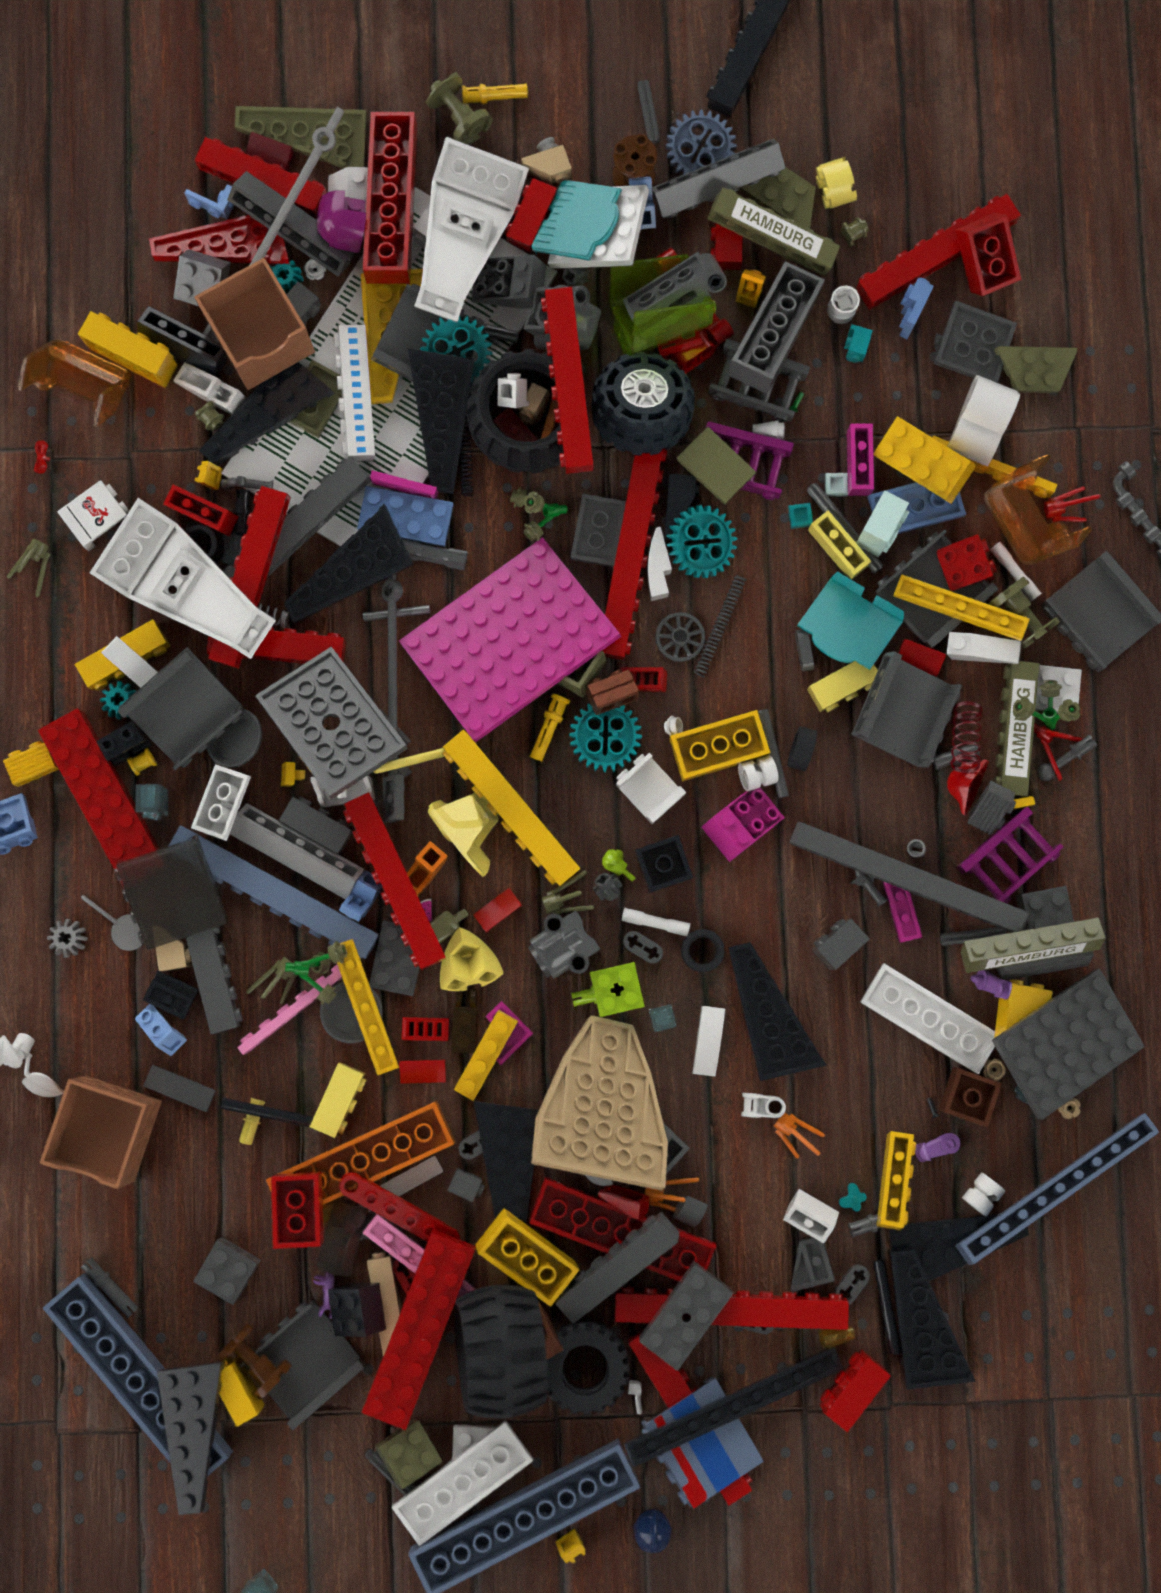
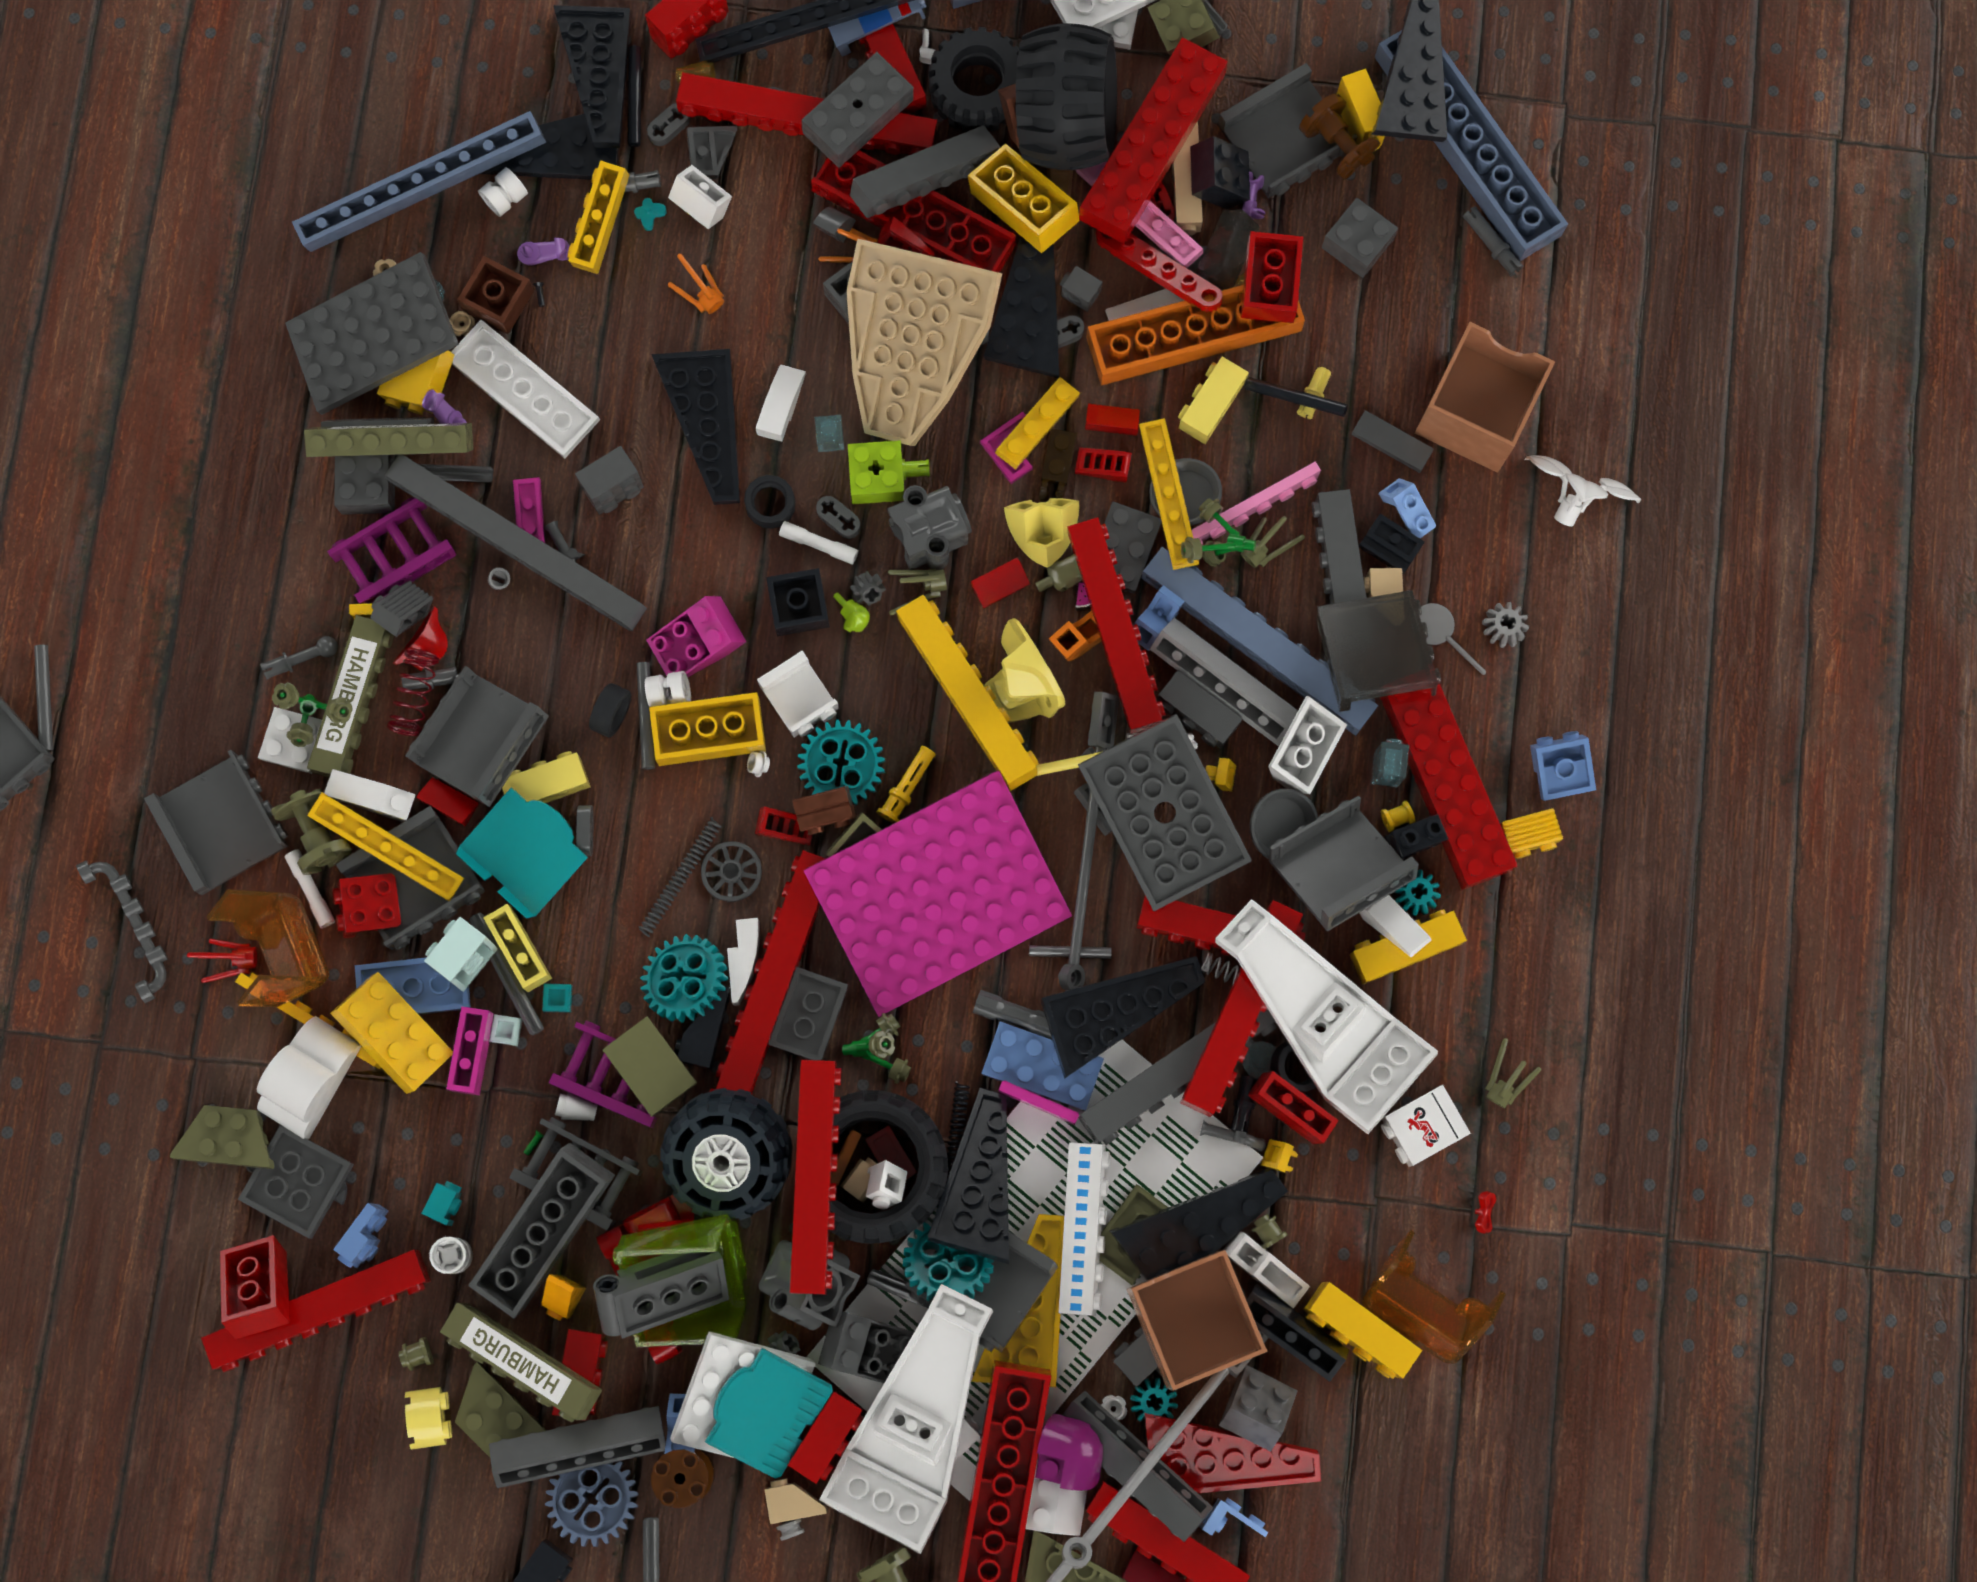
camera: 170 degrees left, 5 degrees down
(761, 1105) = (733, 323): white piece -> none
(1046, 736) = (317, 686): red plant -> none

